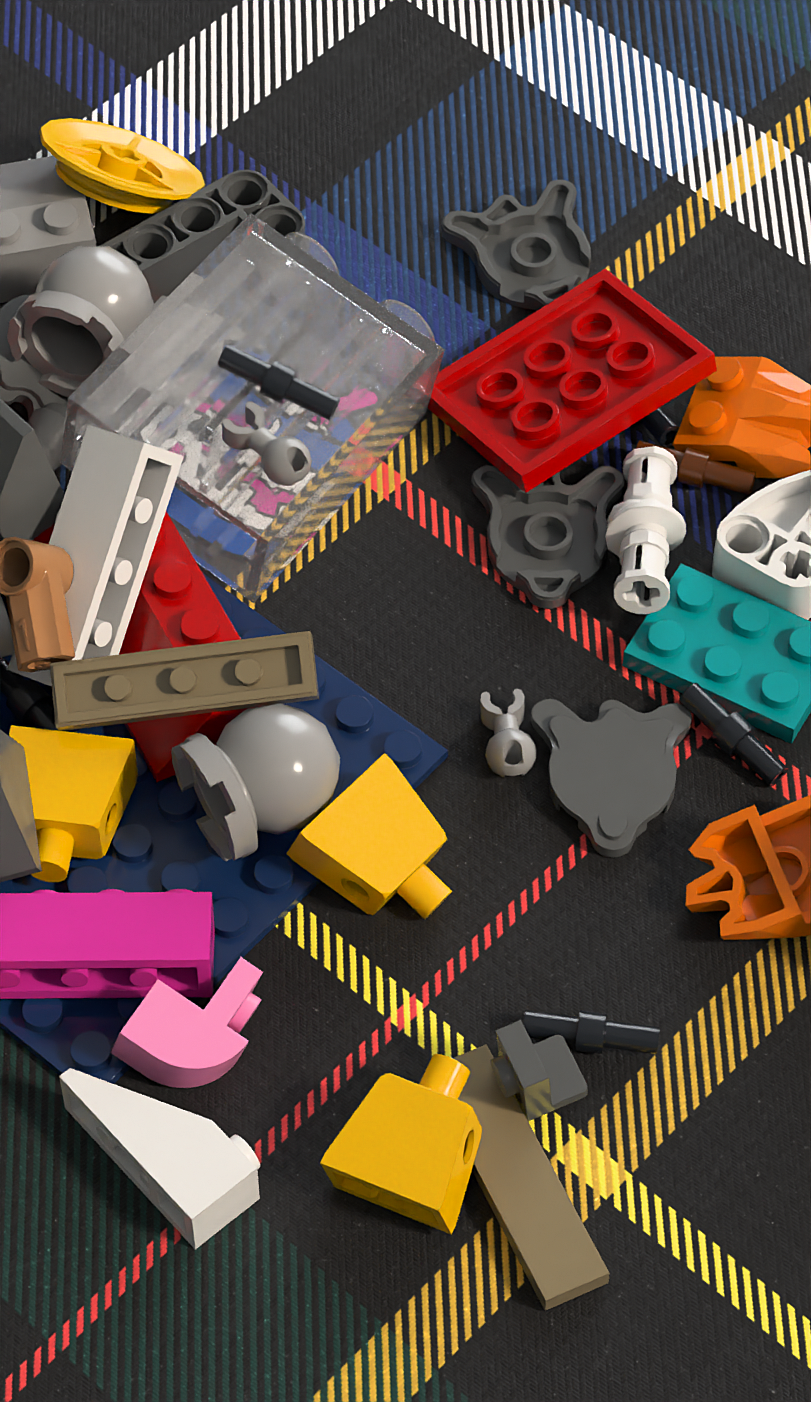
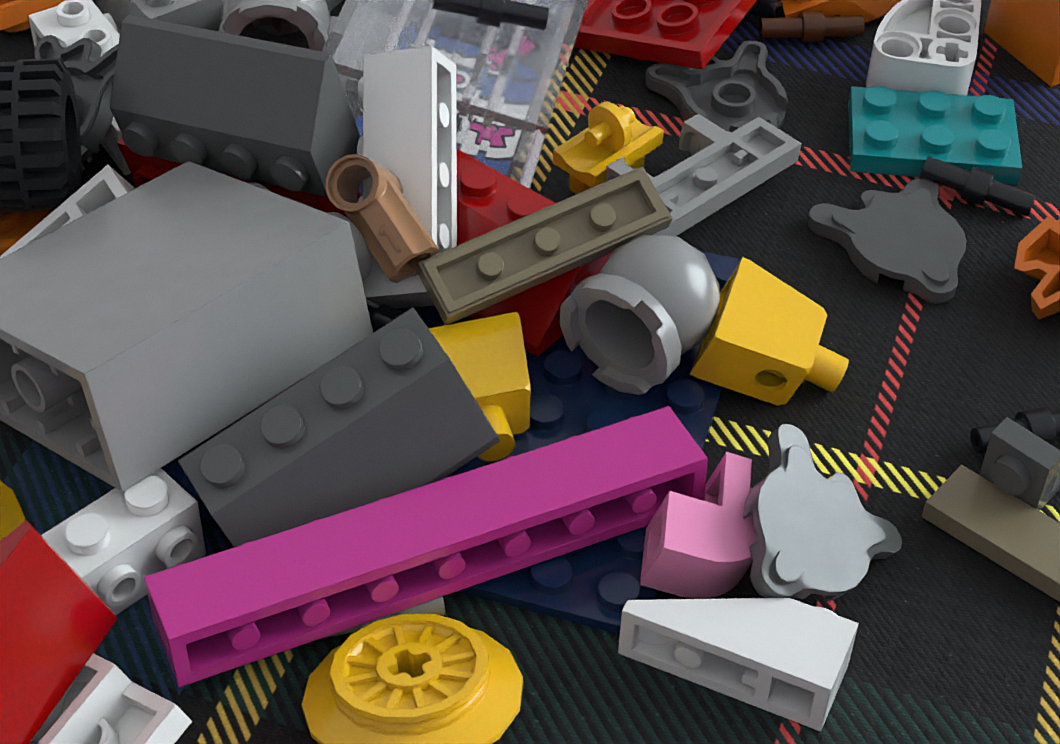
camera: 25 degrees left, 10 degrees down
(279, 1058) = (810, 526): none -> tile
(283, 458) = (530, 58): light grey arm -> none
(362, 563) = (610, 135): none -> yellow hips
(410, 1145) = (974, 562): yellow torso -> none
(468, 629) = (719, 170): none -> light grey hinge
(510, 749) = (814, 245): light grey arm -> none
(645, 530) = (815, 68): white piece -> none

